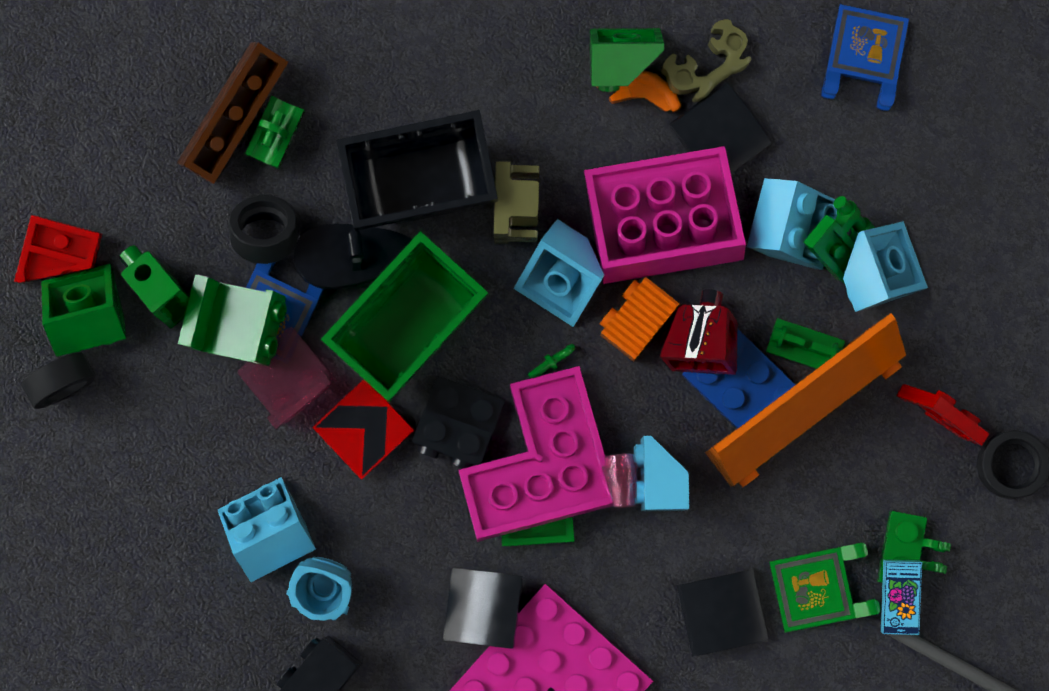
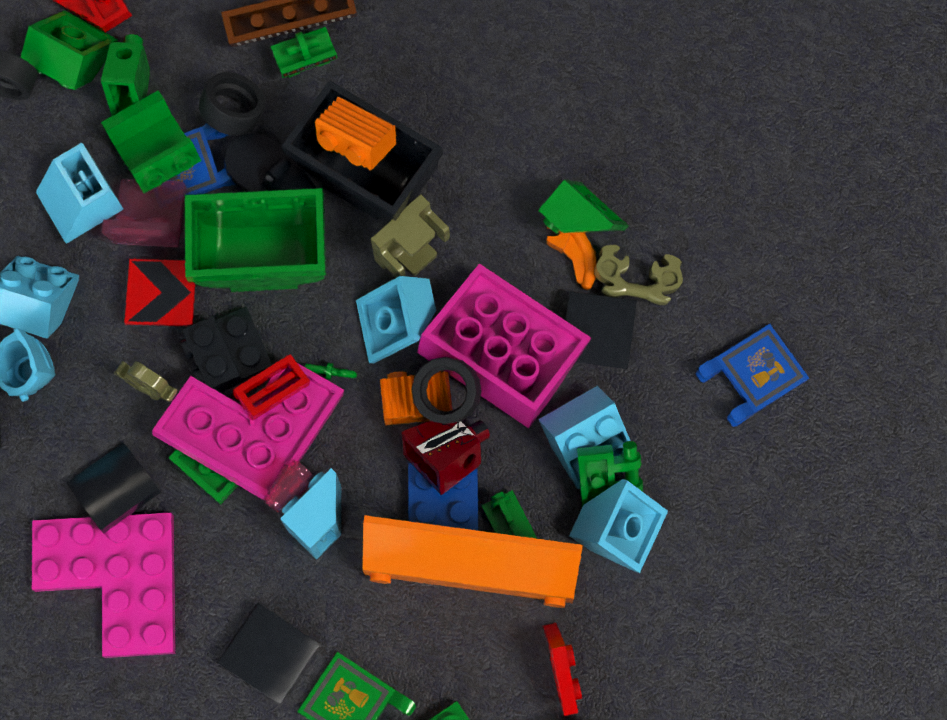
camera: 45 degrees right, 10 degrees down
(218, 418) = (76, 193): none -> medium azure slope
(403, 164) = (355, 133): none -> orange brick
(430, 507) = (145, 381): none -> olive helmet
(523, 448) = (247, 403): none -> red tile
(675, 319) = (420, 384): none -> black tyre

